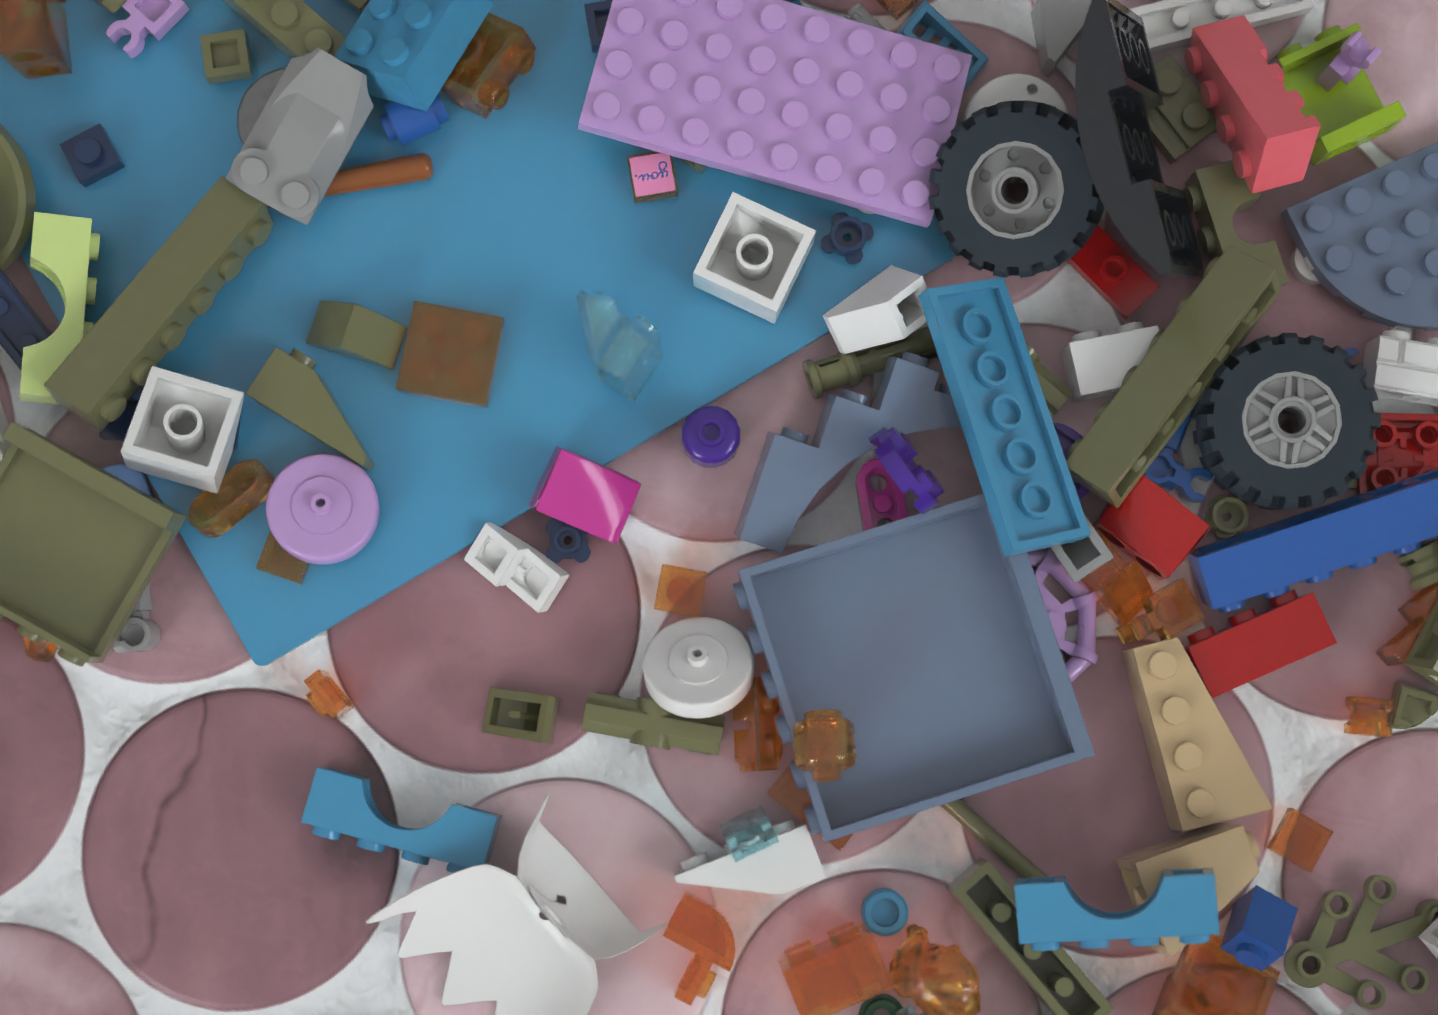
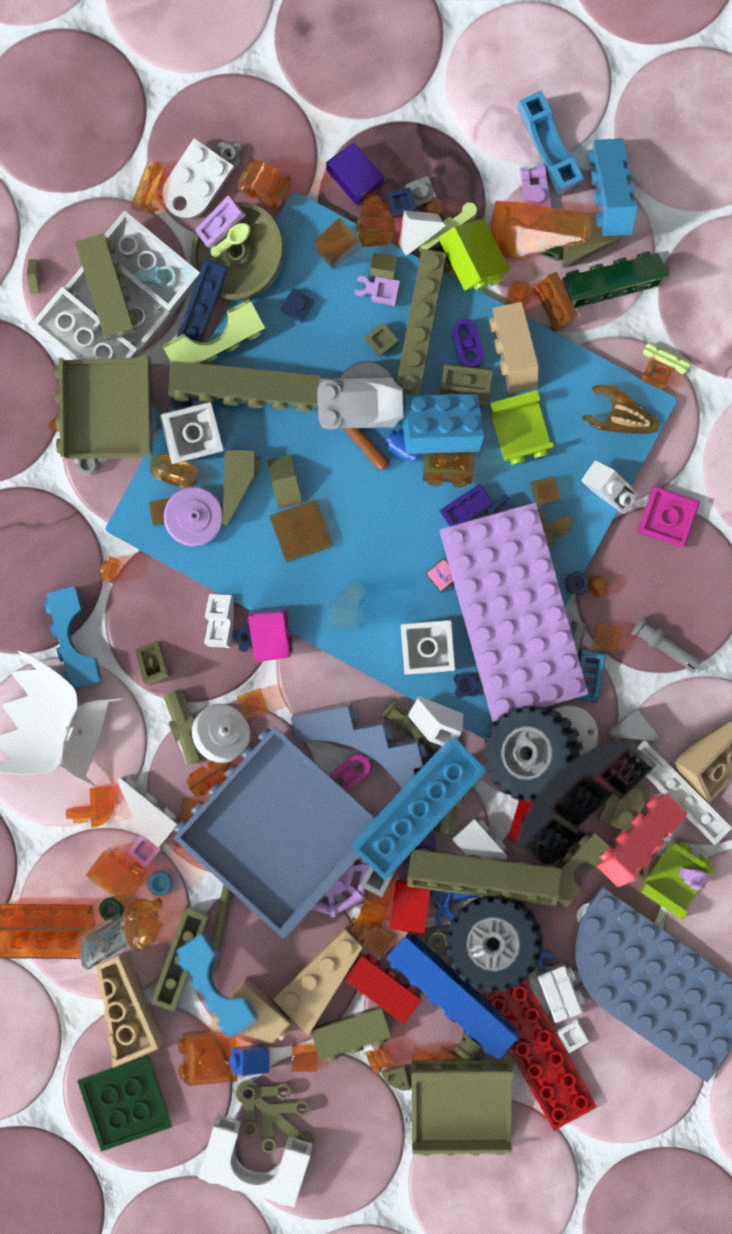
camera: 65 degrees right, 5 degrees up
(567, 74) = (466, 506): none -> dark purple plate
(710, 436) = (332, 676): dark purple head -> none
(748, 833) = (158, 800): clear light blue slope -> none
(817, 906) = (143, 851): none -> lavender plate
(824, 744) = (215, 812): clear orange head -> none
(897, 456) = (364, 776): dark purple plate -> none
(1302, 737) = (351, 1033): none -> olive brick

